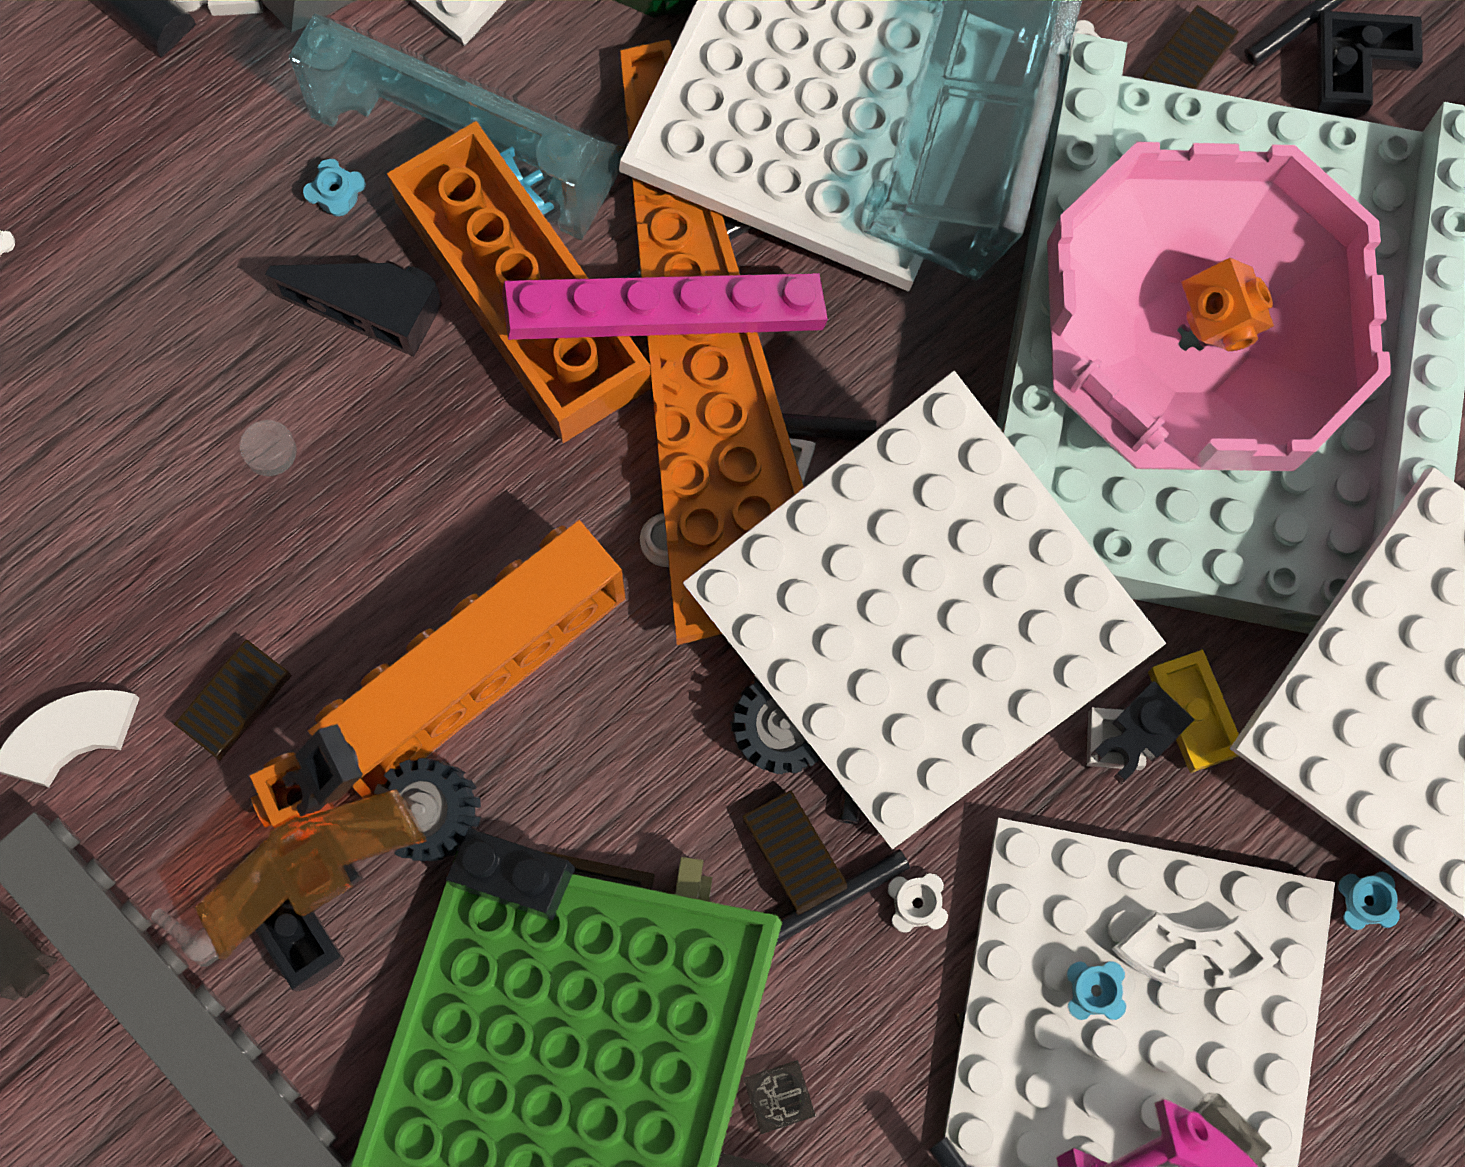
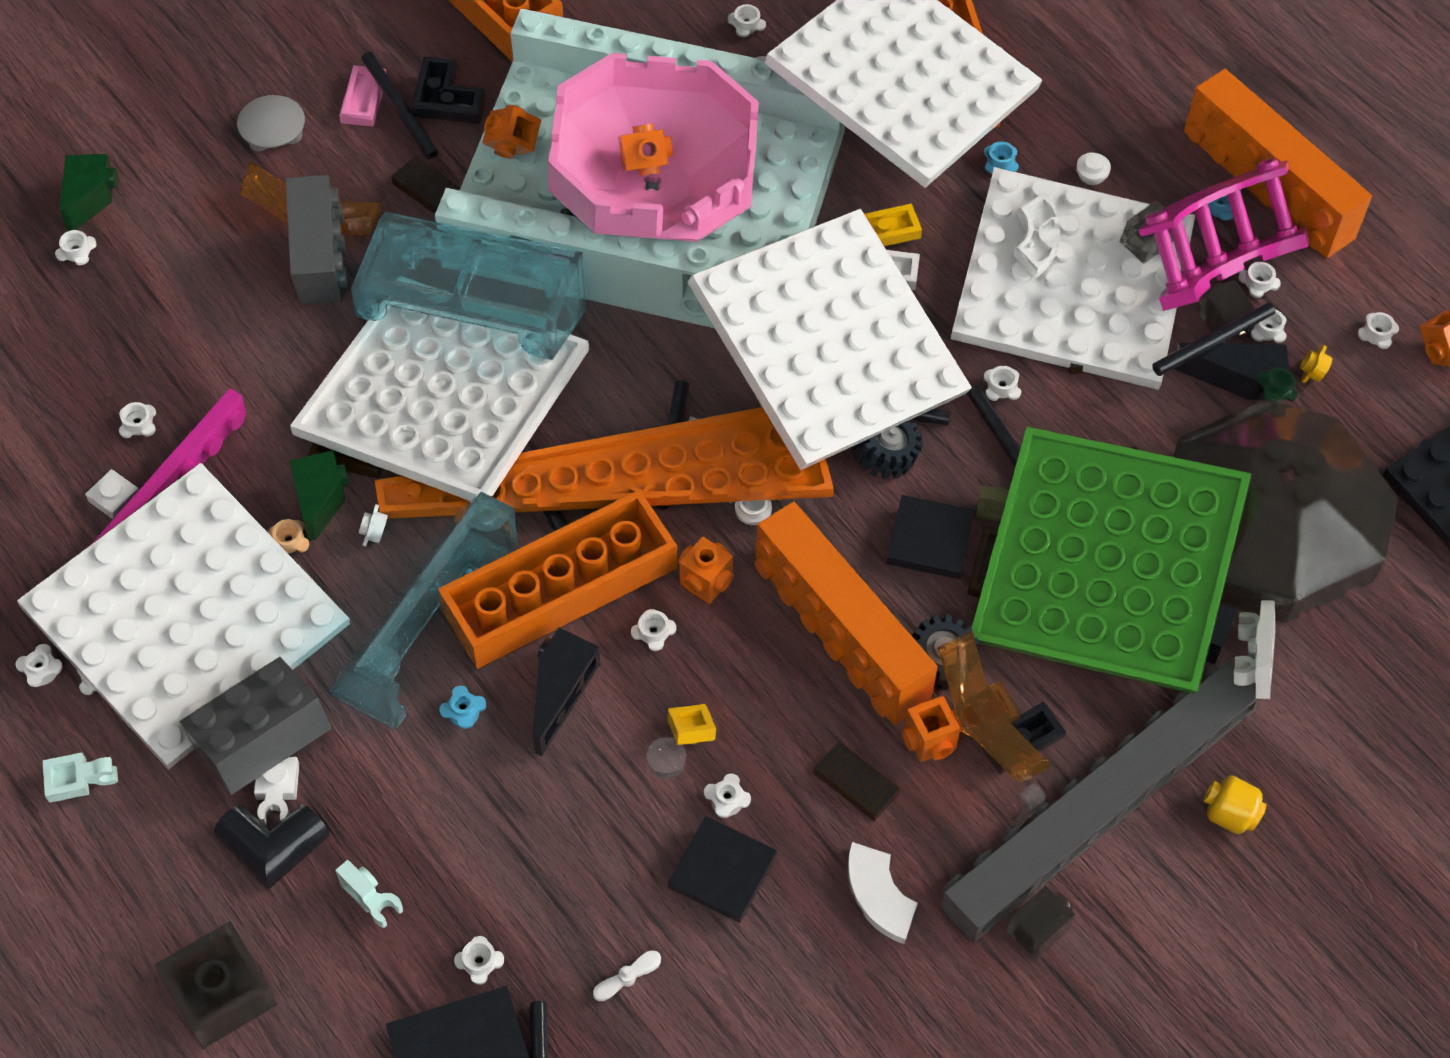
camera: 85 degrees left, 15 degrees down
(69, 97) = (361, 887): none -> light aqua plate
(95, 526) = (722, 869): none -> black tile
(212, 541) = (727, 807): none -> white plate
(308, 472) = (691, 724): none -> yellow plate
(326, 769) = (929, 672): black plate -> none
(460, 402) = (653, 619): none -> white plate
(510, 874) = (990, 594): black plate -> none
(549, 490) = (706, 569): none -> orange brick
(600, 47) = (373, 526): none -> white plate
(627, 793) = (930, 536): none -> black tile
(663, 306) = (596, 480): dark pink plate -> none
(794, 852) = (970, 445): tile -> none
(1084, 1002) = (1063, 276): medium azure plate -> none
(1146, 727) = (904, 249): black plate -> none
(1256, 100) = (511, 131): none -> orange brick
(1373, 1056) = (1093, 168): none -> white plate

